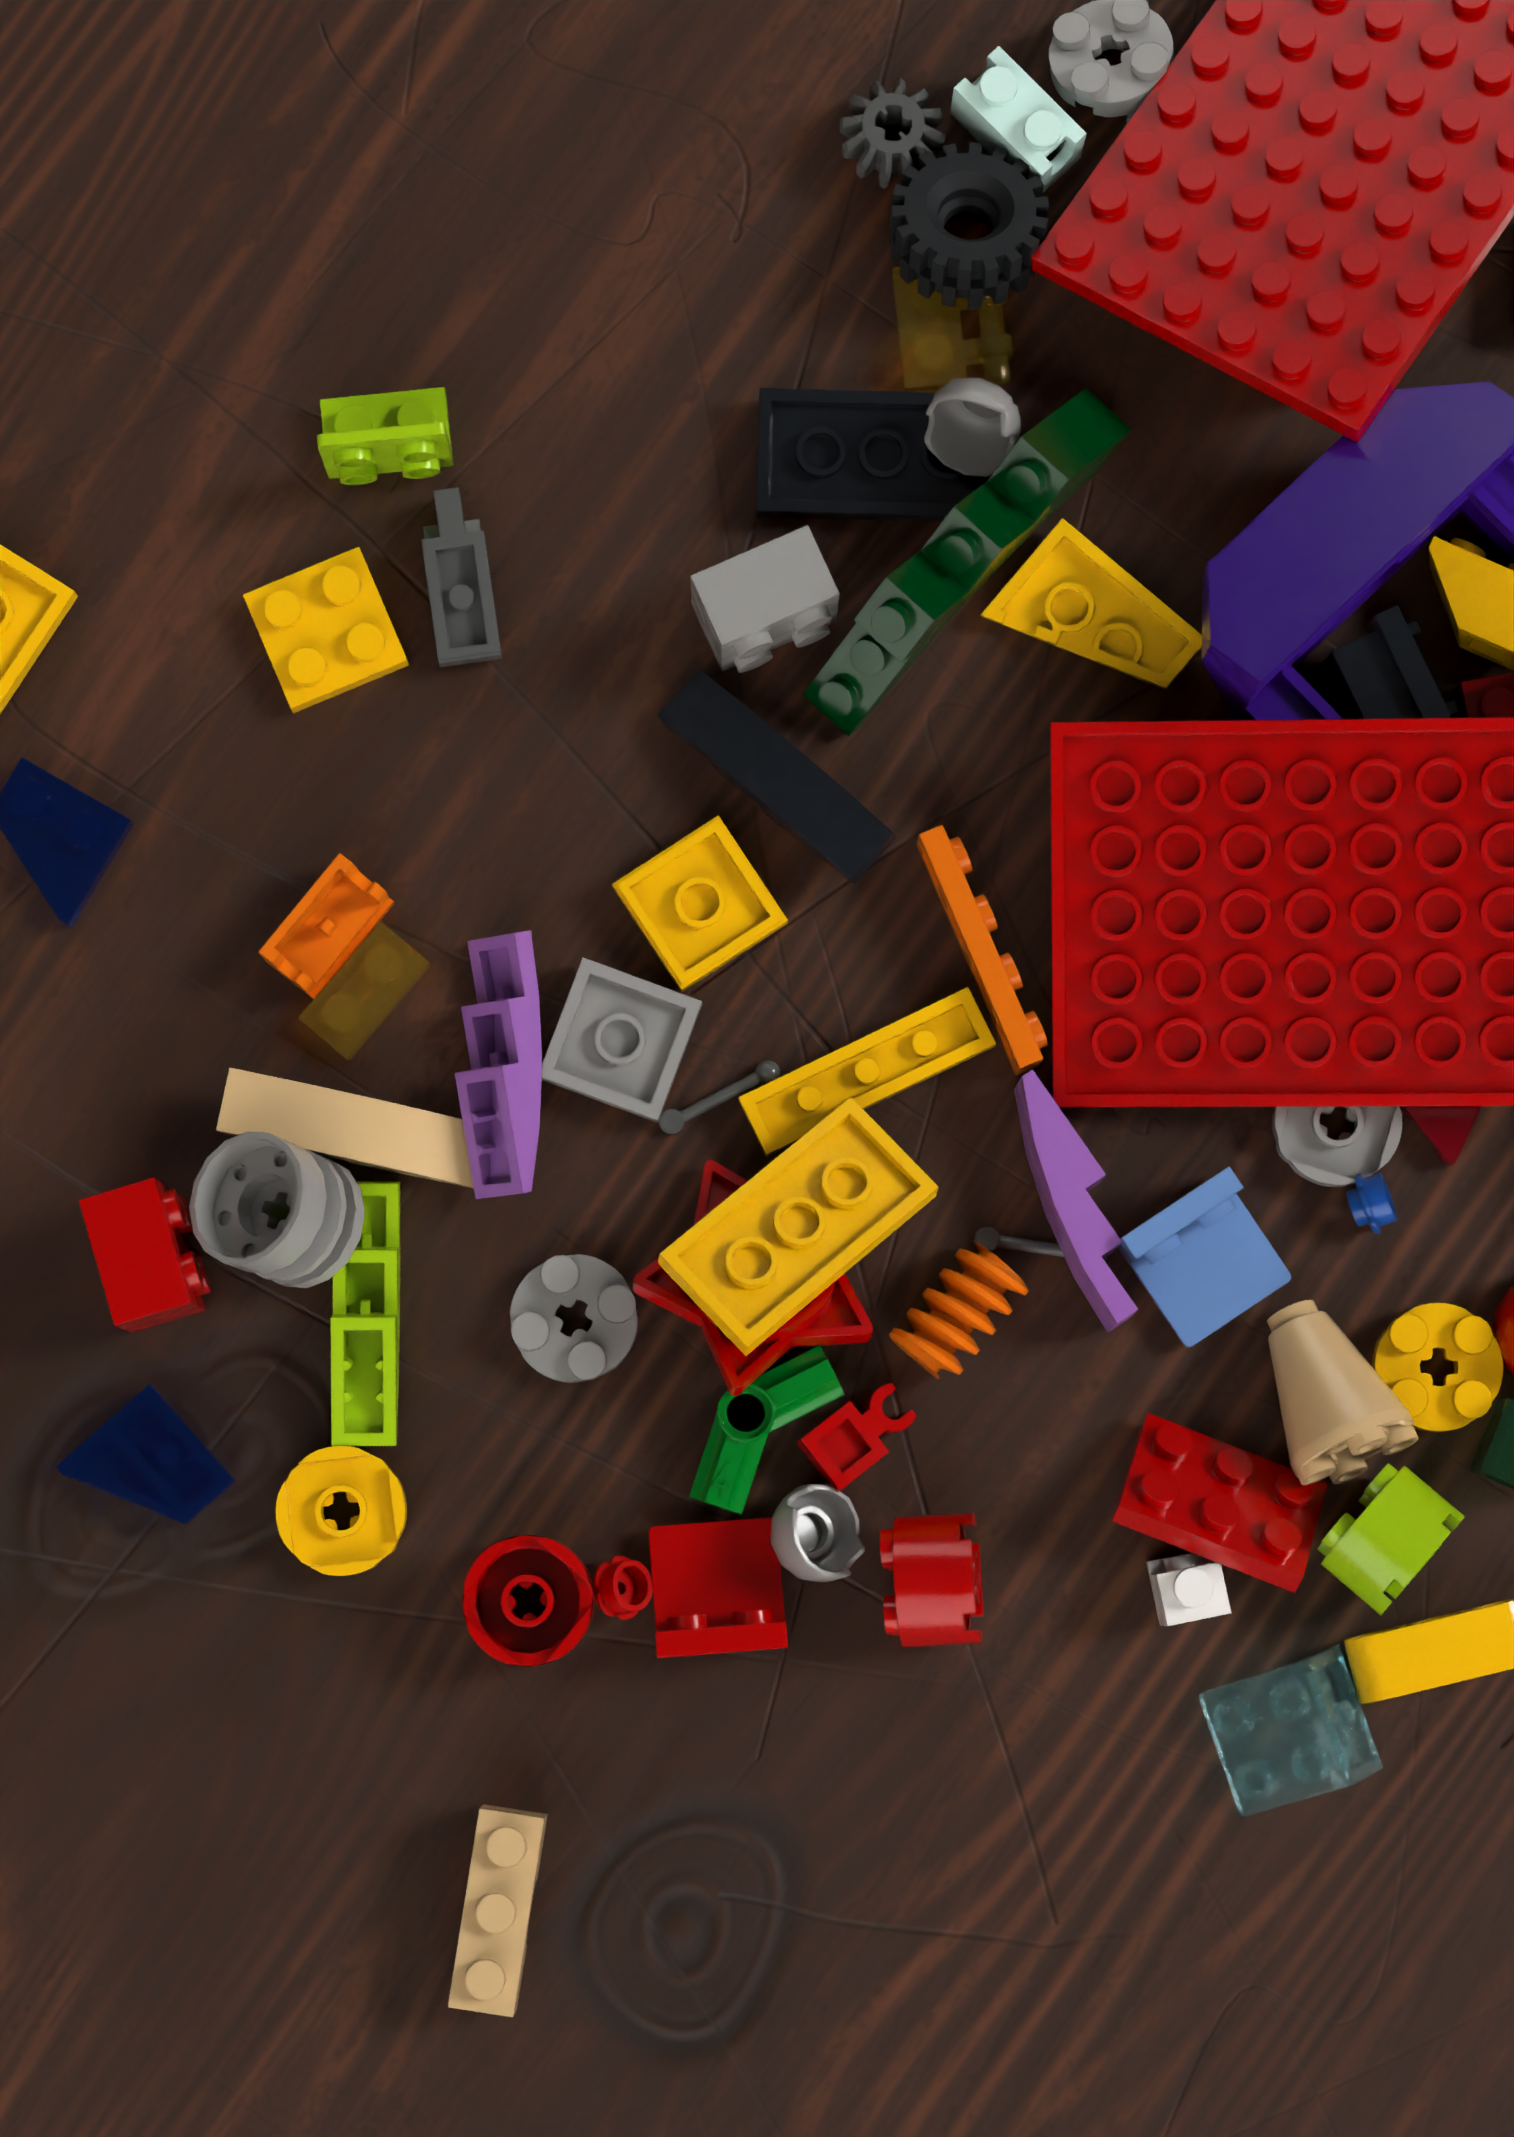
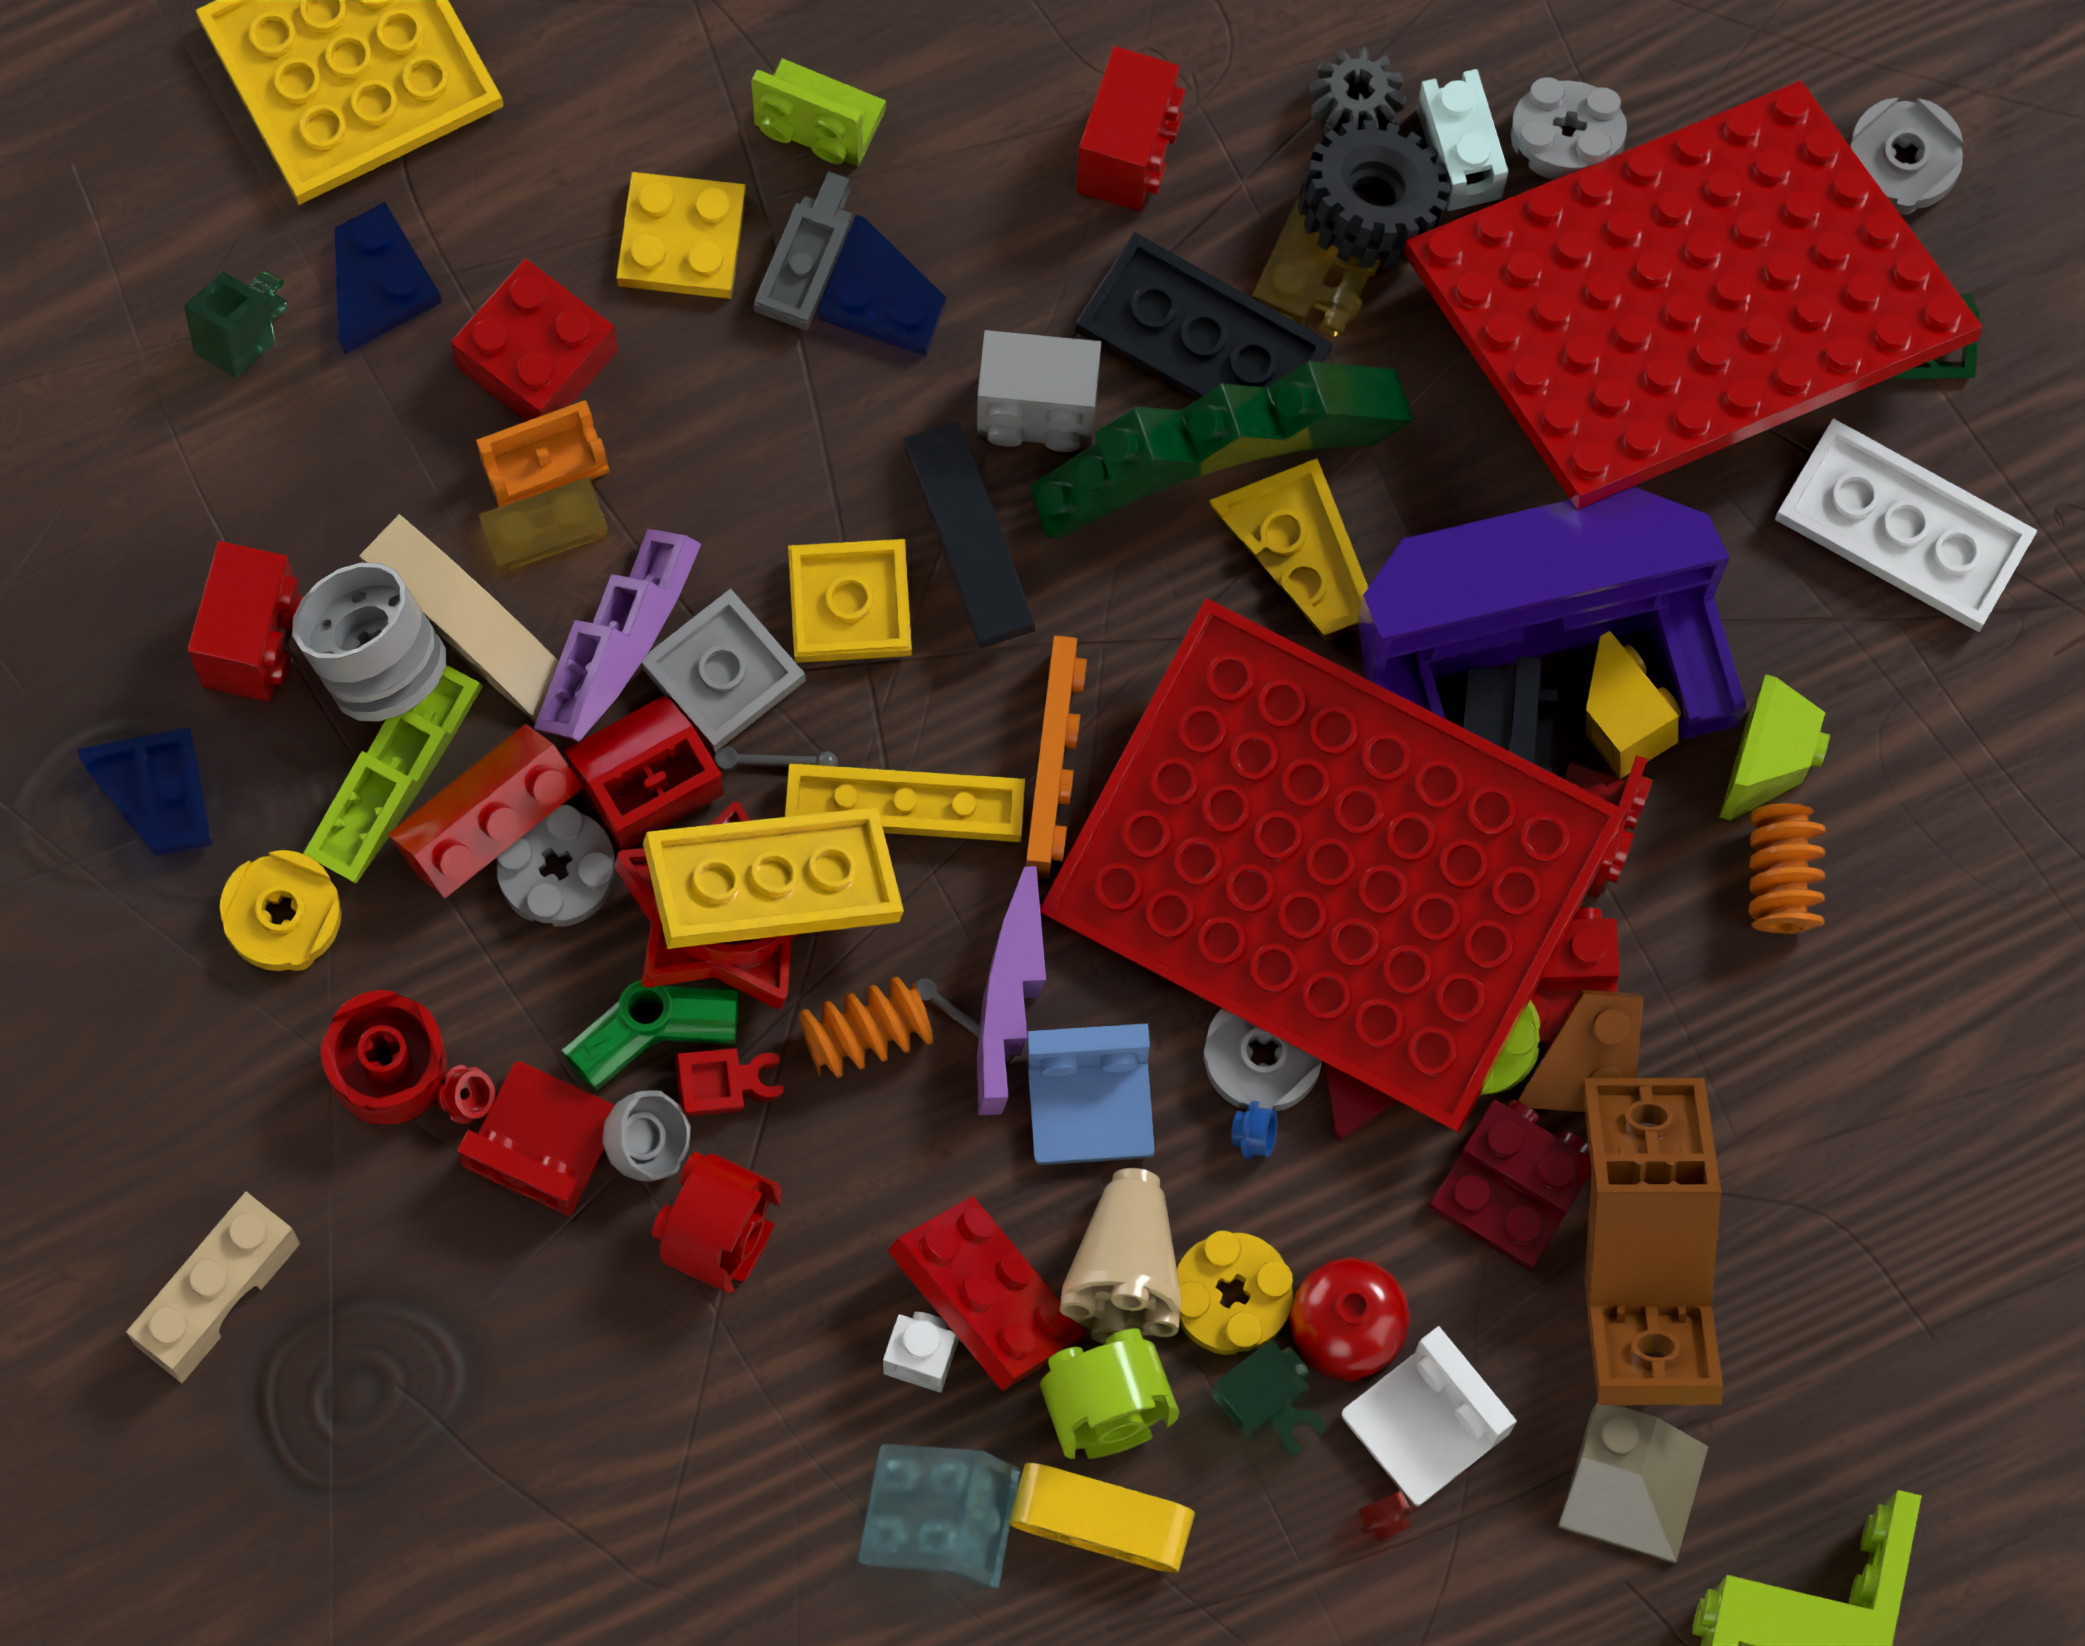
camera: 30 degrees right, 10 degrees down
(254, 822) = (534, 344): none -> red brick
(481, 1307) = (485, 810): none -> red brick
(551, 580) = (881, 293): none -> clear blue wing
(604, 1180) = (645, 771): none -> red slope
(699, 288) = (1130, 129): none -> red brick
(972, 426) = (1281, 340): light grey hair -> none

